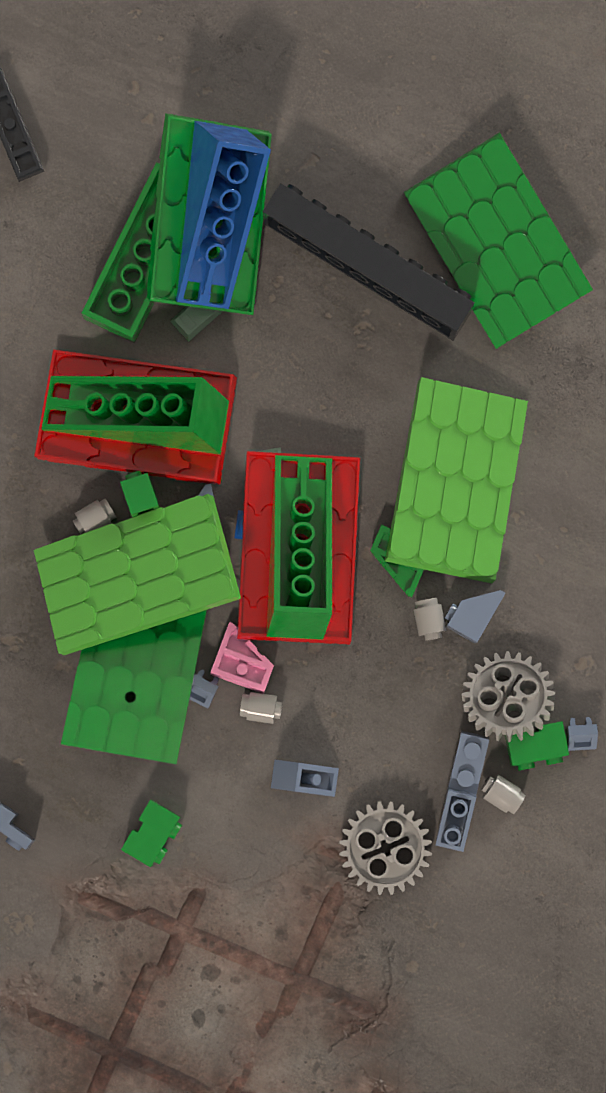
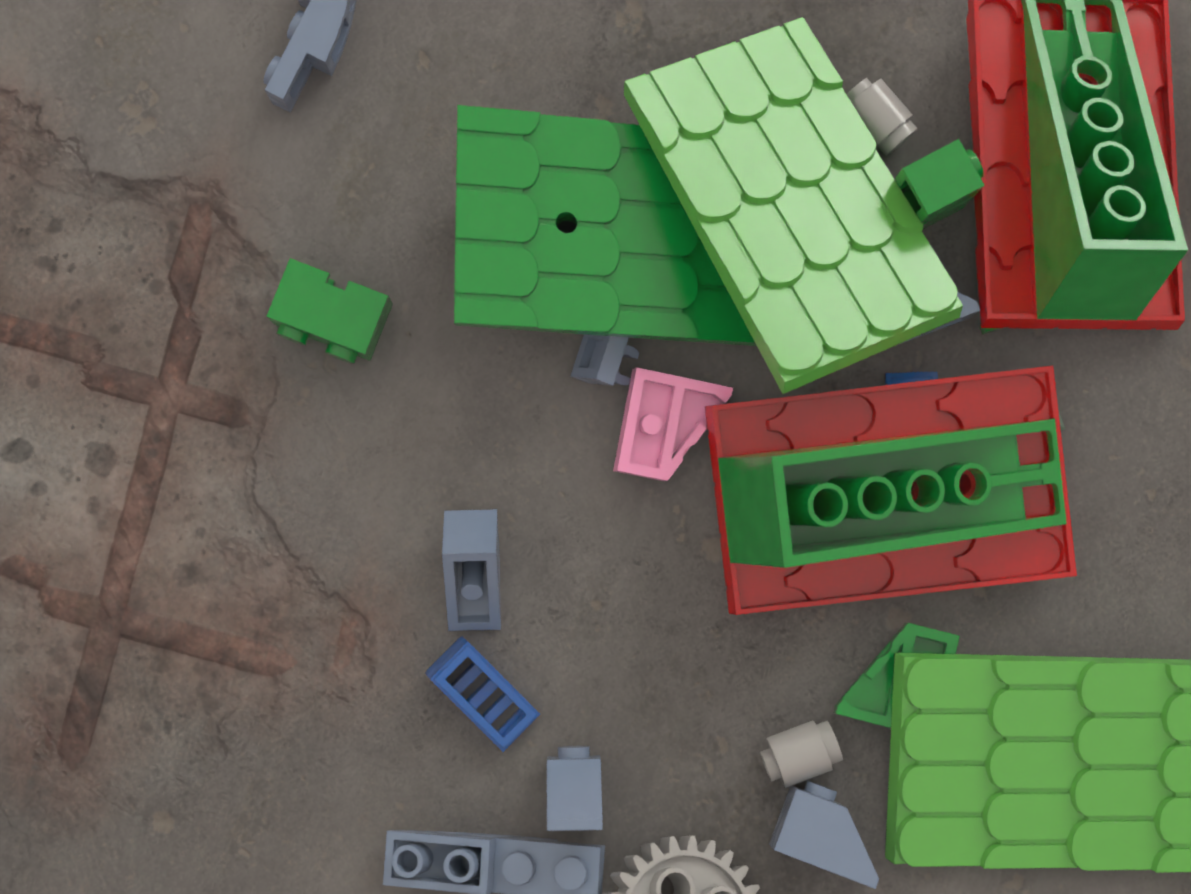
camera: 75 degrees right, 0 degrees up
(260, 707) = (587, 469): light grey brick -> none
(351, 797) = (450, 661): none -> blue slope
(395, 872) = (326, 764): light grey gear -> none
(429, 742) = (574, 790): none -> sand blue slope

